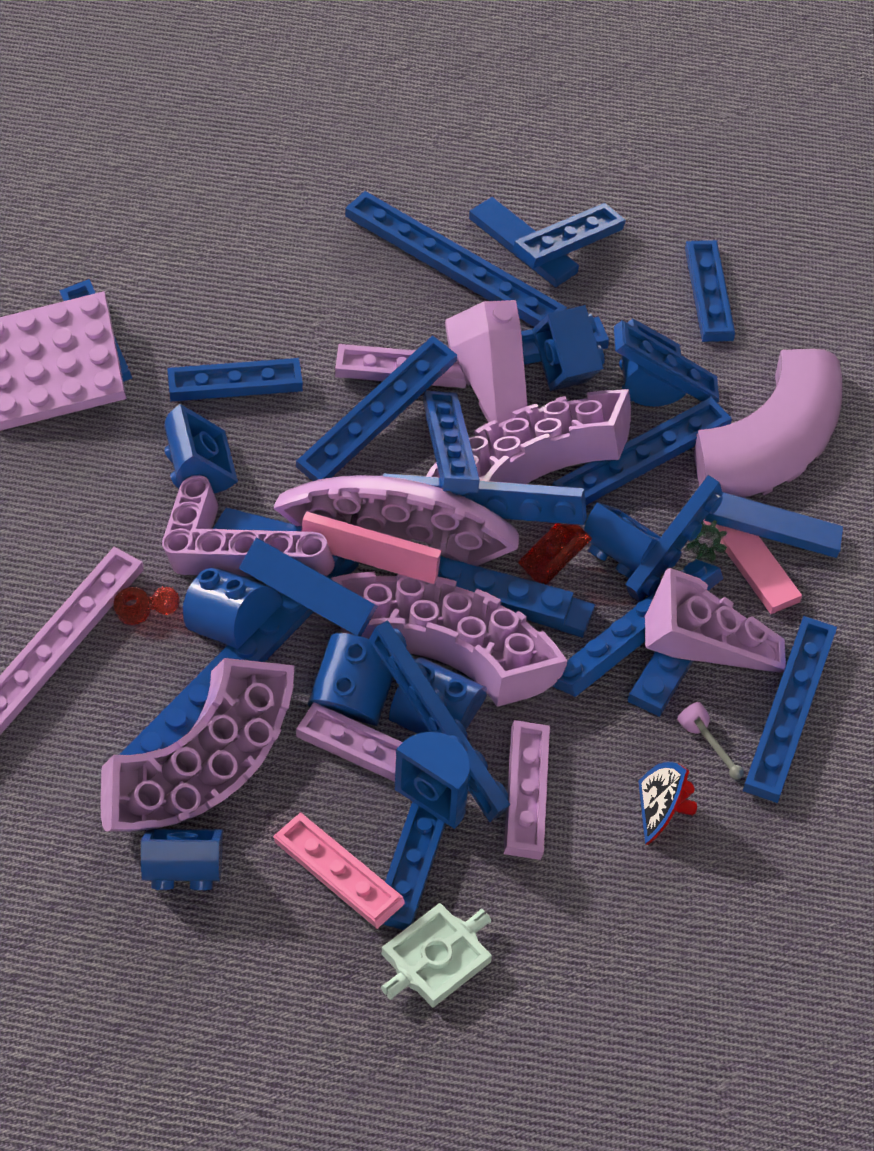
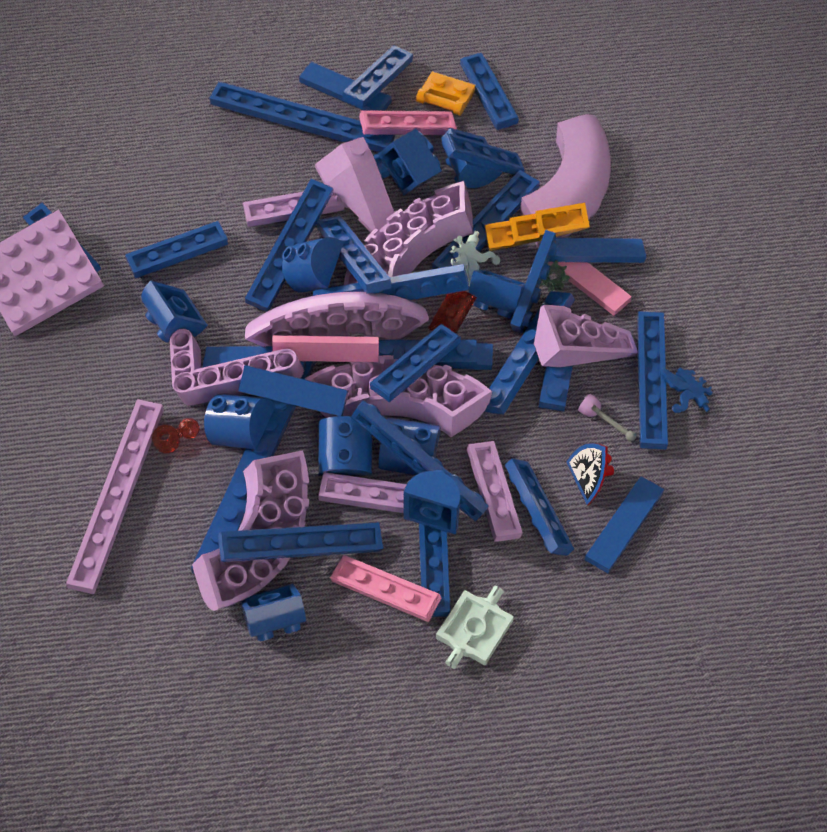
camera: 15 degrees left, 5 degrees up
(247, 778) = (299, 542): none -> blue plate
(392, 439) = (311, 263): none -> blue brick
(480, 597) = (415, 363): none -> blue tile
(565, 294) = (405, 121): none -> bright pink tile
(578, 827) = (539, 507): none -> blue plate
(604, 485) = (470, 256): none -> light aqua piece
(651, 278) = (446, 93): none -> light orange plate
(685, 882) = (624, 524): none -> blue tile
(689, 469) = (531, 227): none -> light orange slope
(837, 733) = (690, 389): none -> blue piece

